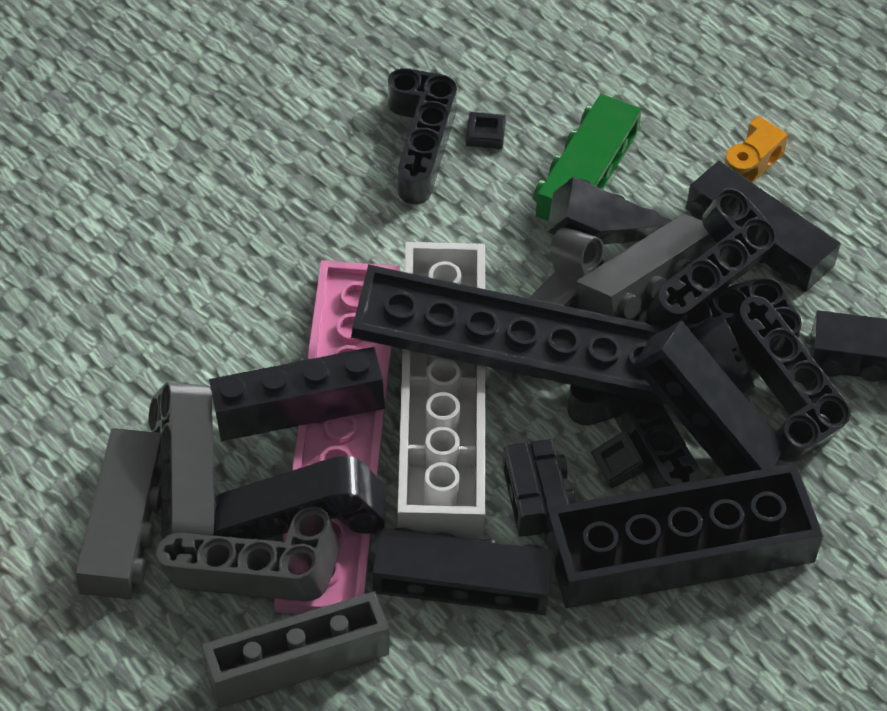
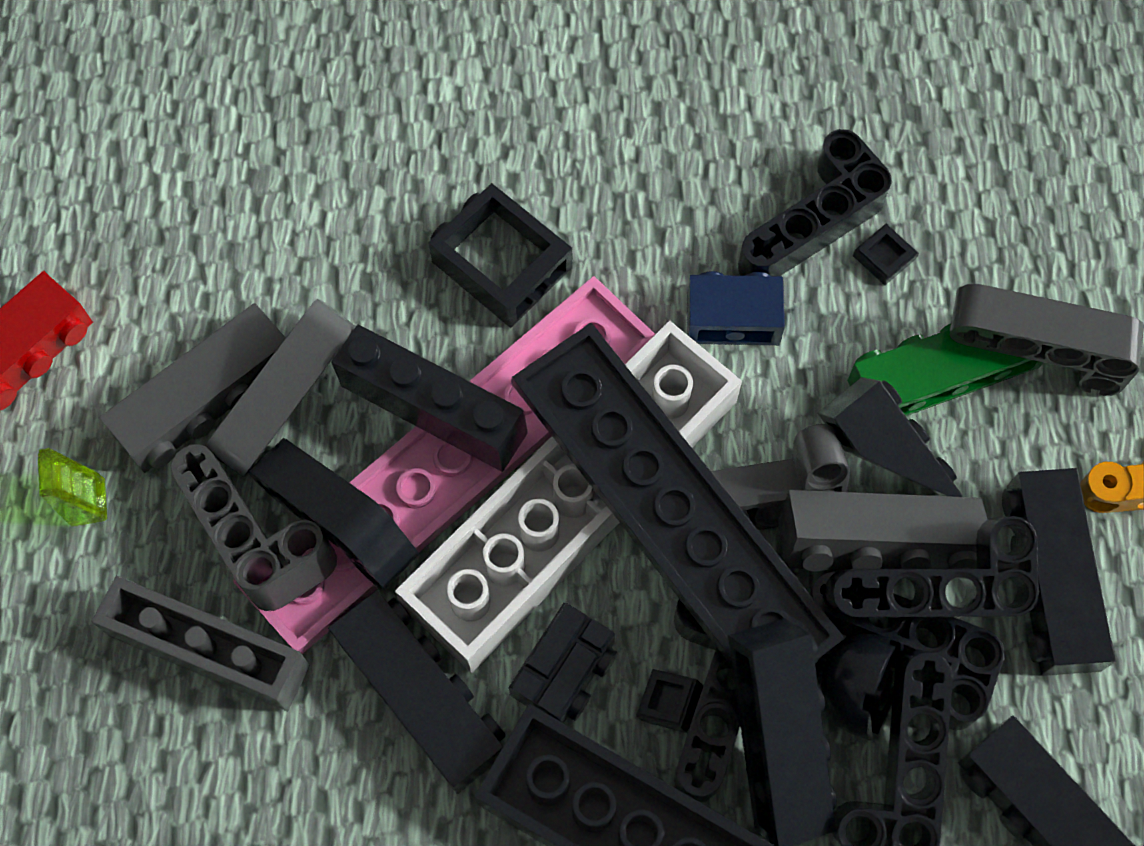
camera: 45 degrees right, 15 degrees up
(101, 635) = (71, 488): none -> clear neon green slope
(240, 317) = (530, 285): none -> black window
(432, 215) = (735, 309): none -> dark blue brick
(653, 87) = (1051, 331): none -> dark grey beam

